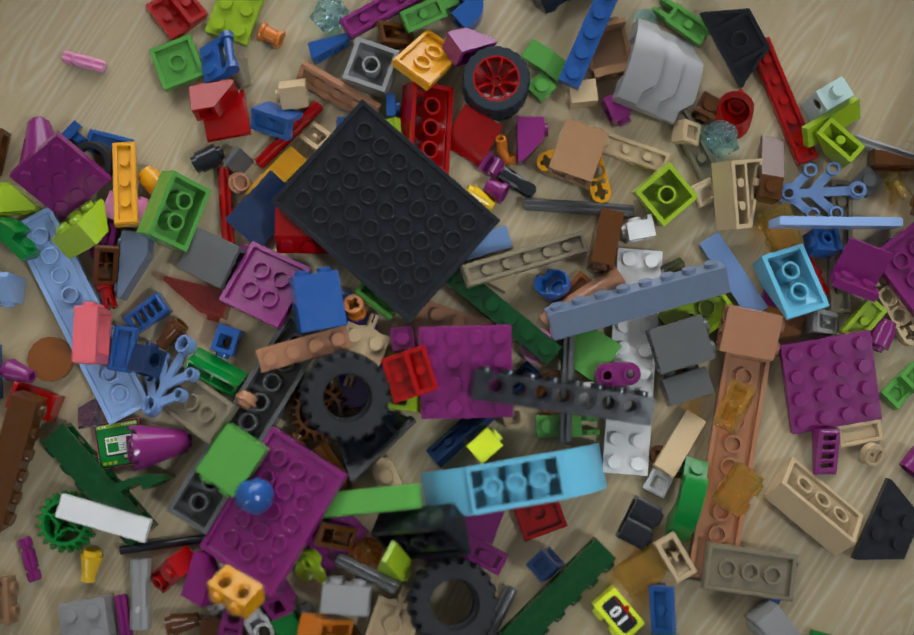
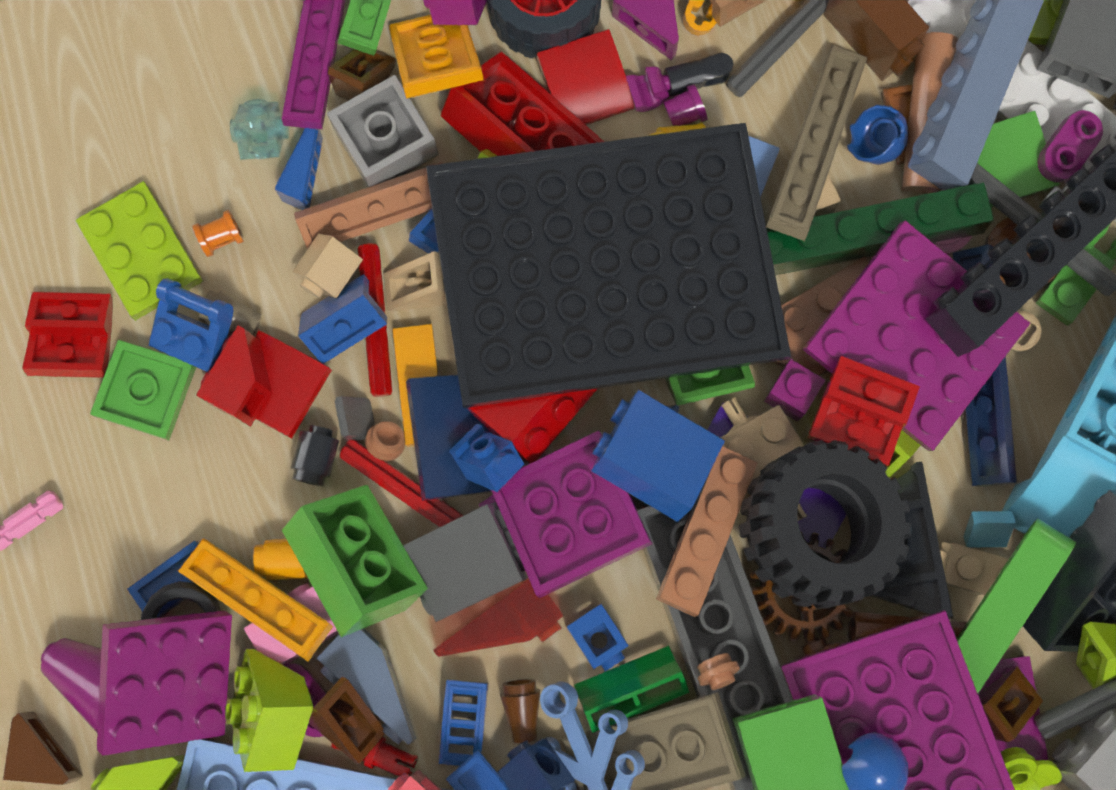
camera: 50 degrees left, 5 degrees down
(72, 132) = (110, 613): blue tile -> none
(262, 230) = (486, 458): none -> blue brick
(357, 313) = (695, 406): orange bush -> none
(367, 551) = (1060, 679): clear orange gear -> none
(392, 106) = (455, 148): blue plate -> none
(410, 471) = (989, 529): none -> medium azure tile
(485, 444) = (1038, 393): neon yellow brick -> none
(502, 150) = (638, 59): orange arm -> none

